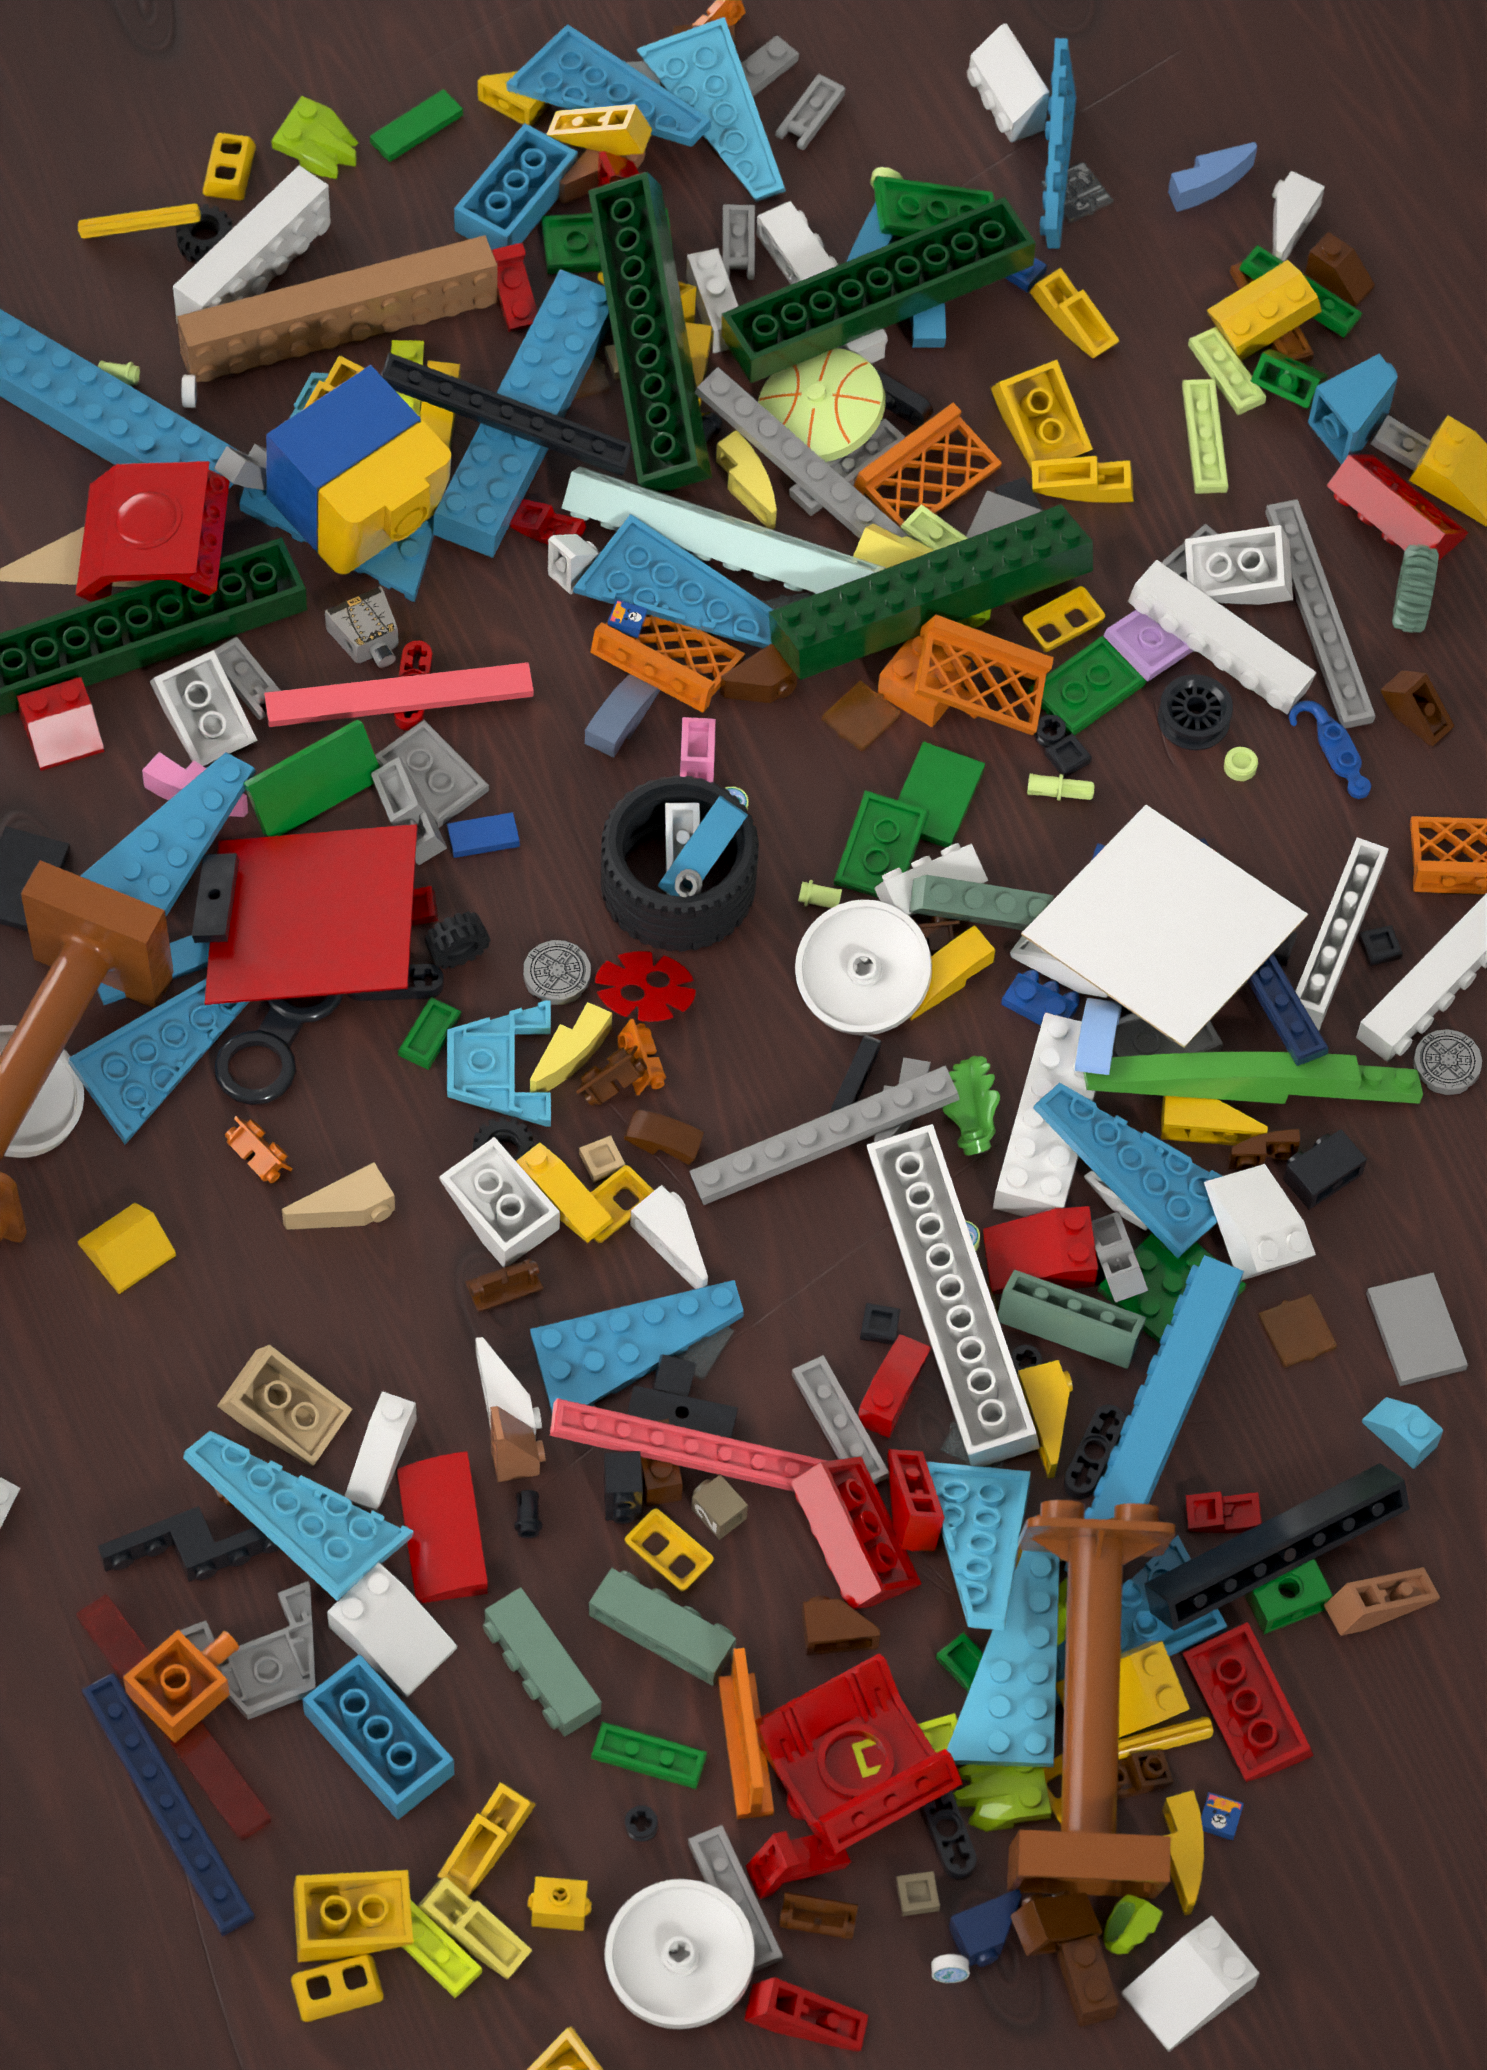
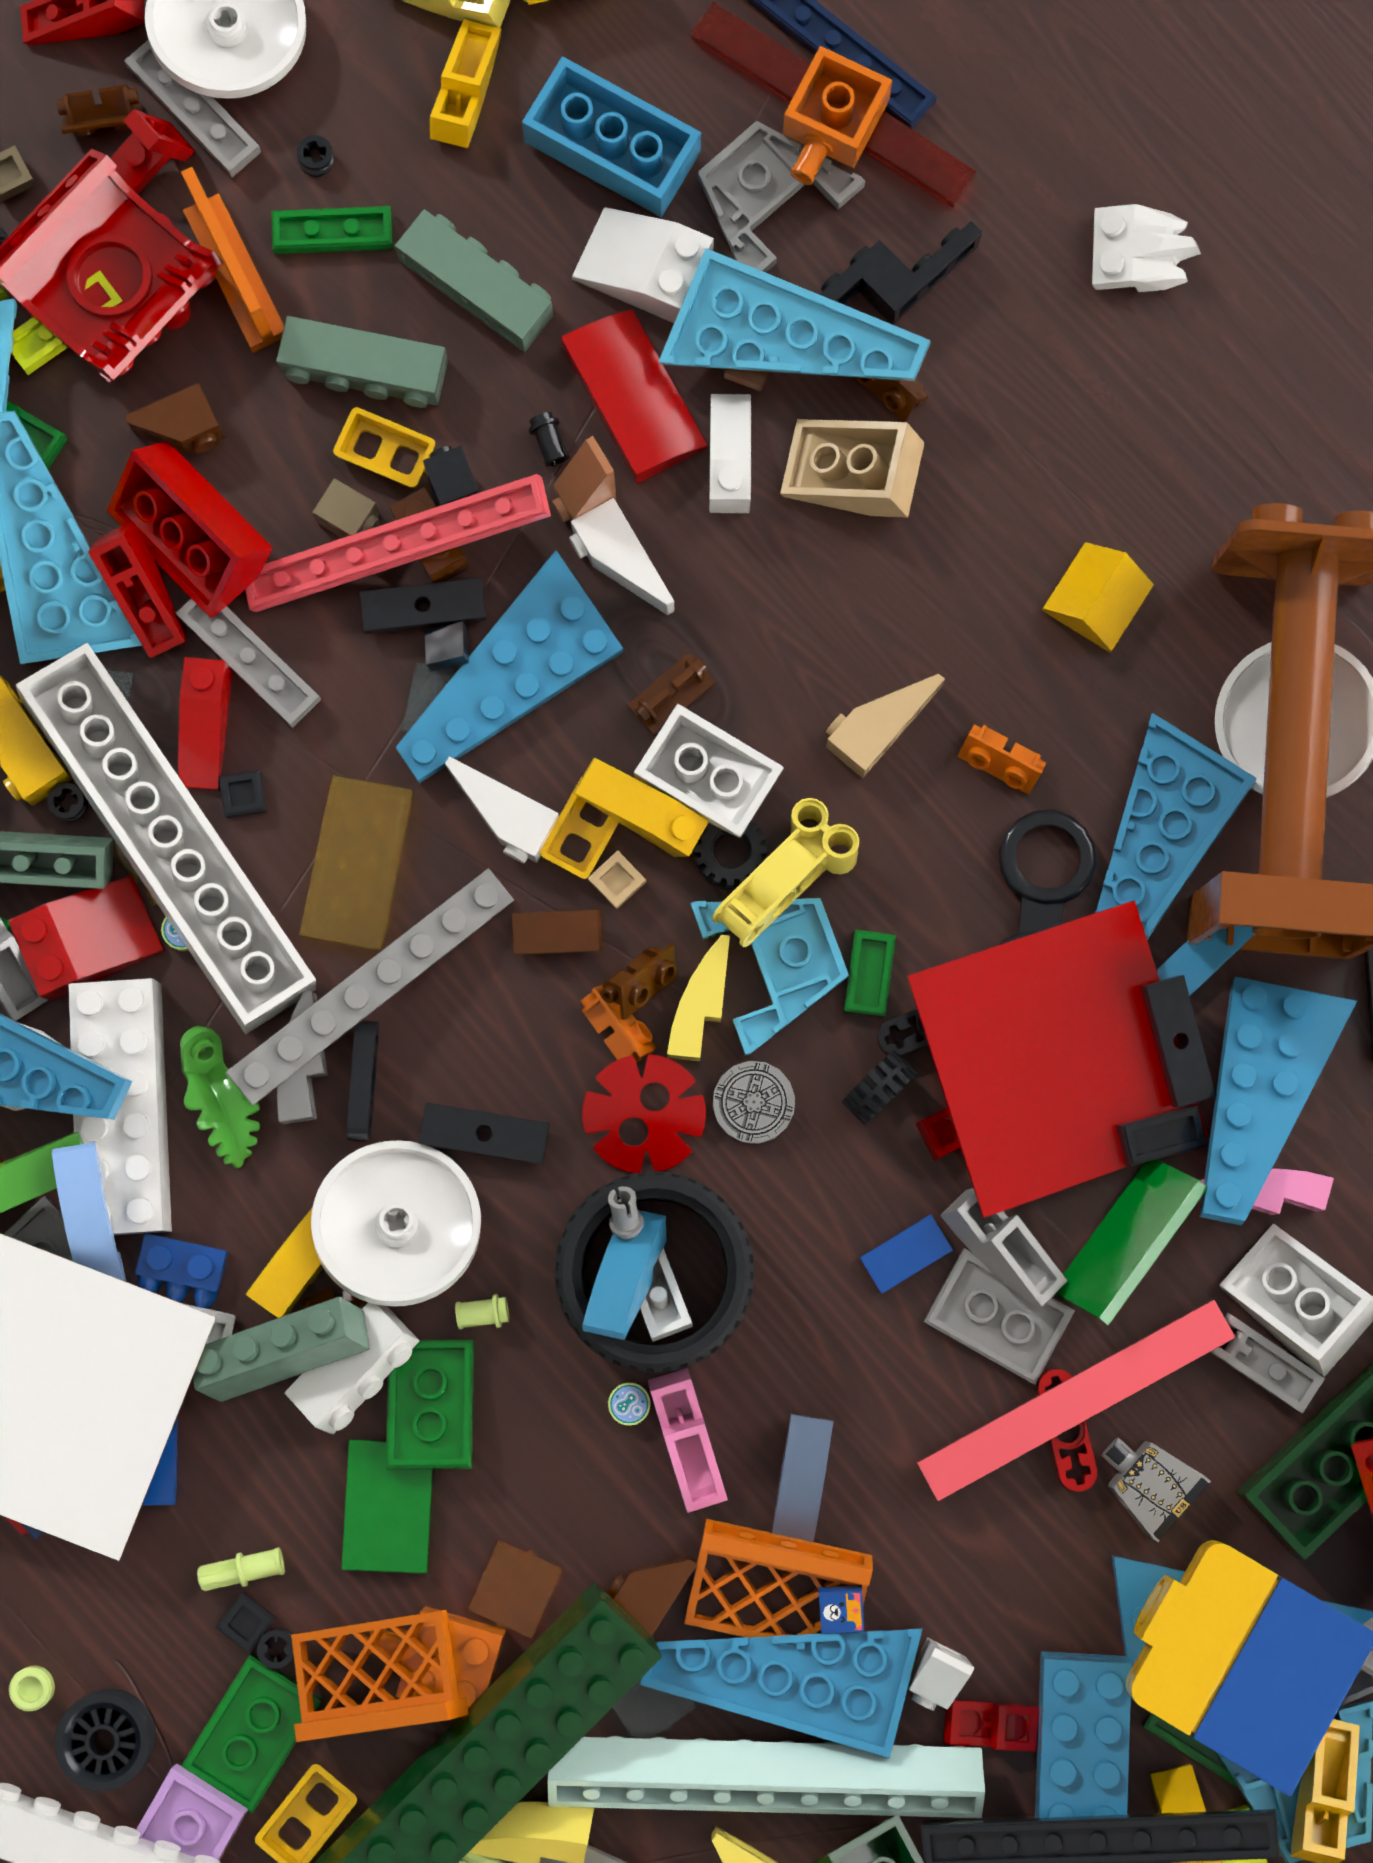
camera: 165 degrees right, 20 degrees up
(258, 844) = (1161, 1135): none -> black tile
(467, 1110) = (788, 872): none -> light yellow piece
(559, 1903) = (366, 36): yellow head -> none
(758, 1004) = (458, 1130): none -> black tile
(805, 1242) = (356, 863): none -> clear yellow tile

